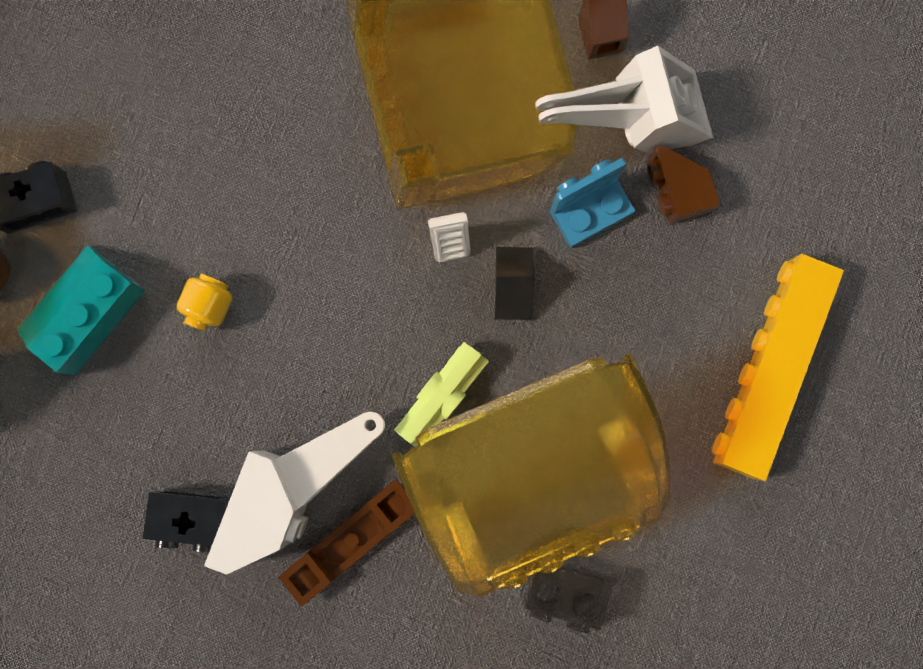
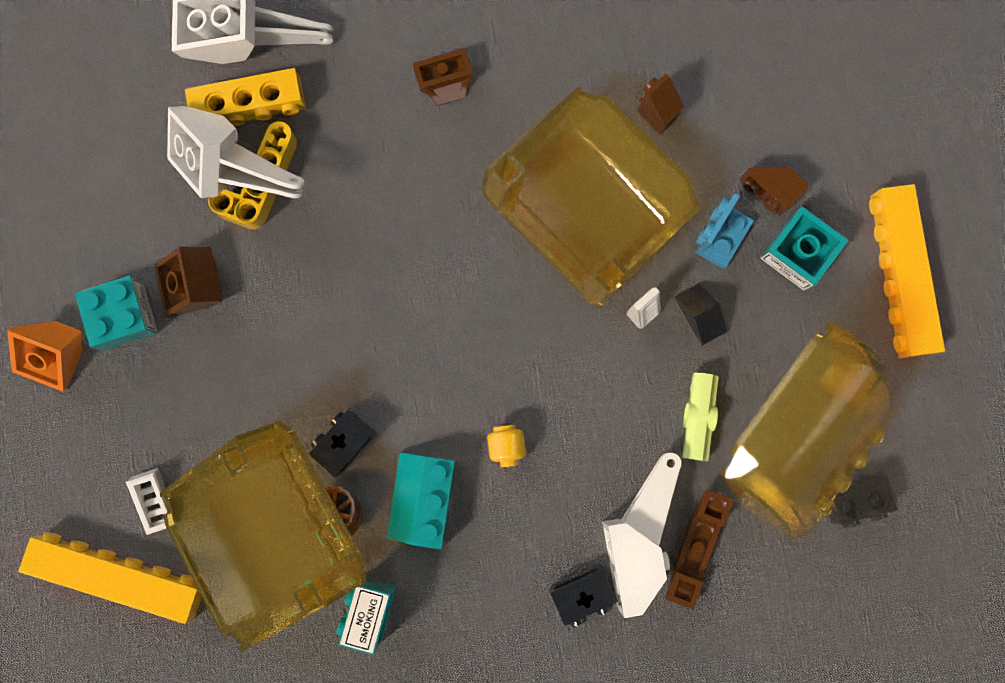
camera: 30 degrees left, 0 degrees up
(655, 105) = (731, 142): white slope -> none
(671, 271) = (803, 249): none -> teal brick

